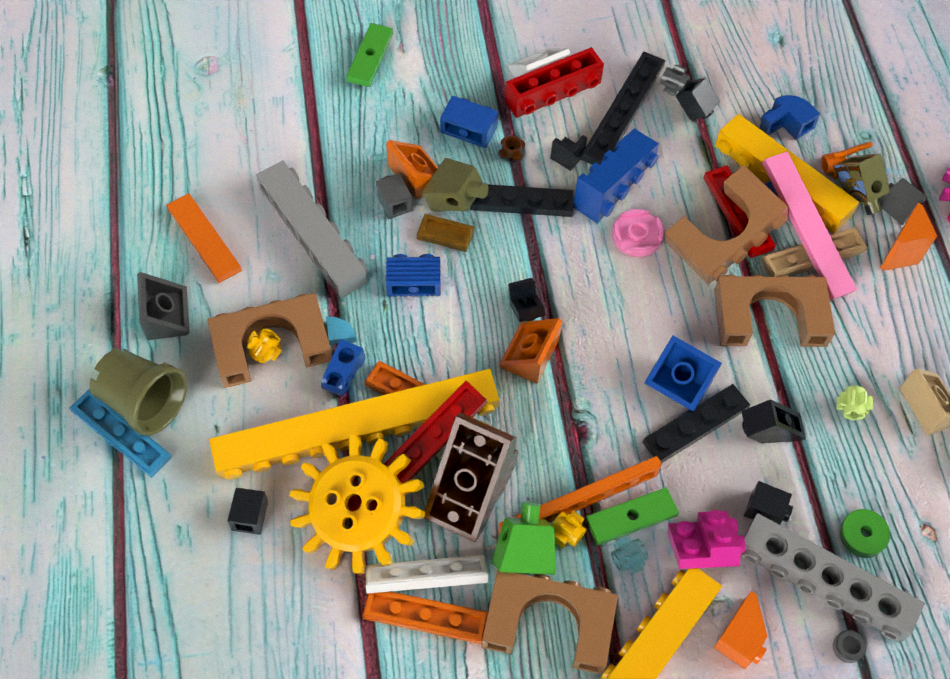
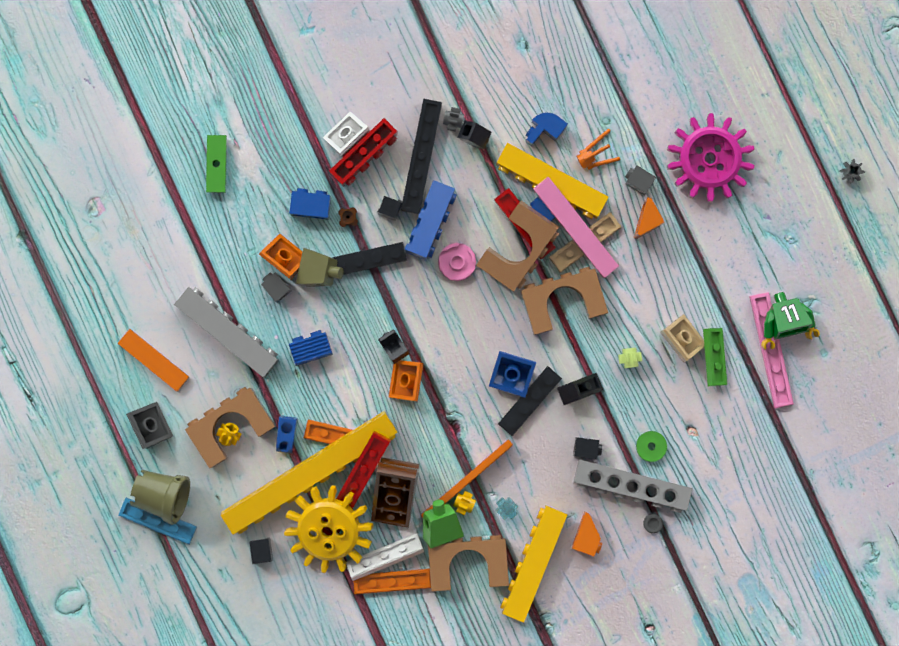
camera: 15 degrees left, 25 degrees up
(339, 329) = (273, 404): medium azure tile -> none
(445, 232) = (321, 303): pearl gold tile -> none
(647, 510) = (512, 473): bright green tile -> none
(707, 542) = (551, 487): dark pink plate -> none
(864, 180) = (612, 179): olive torso -> none

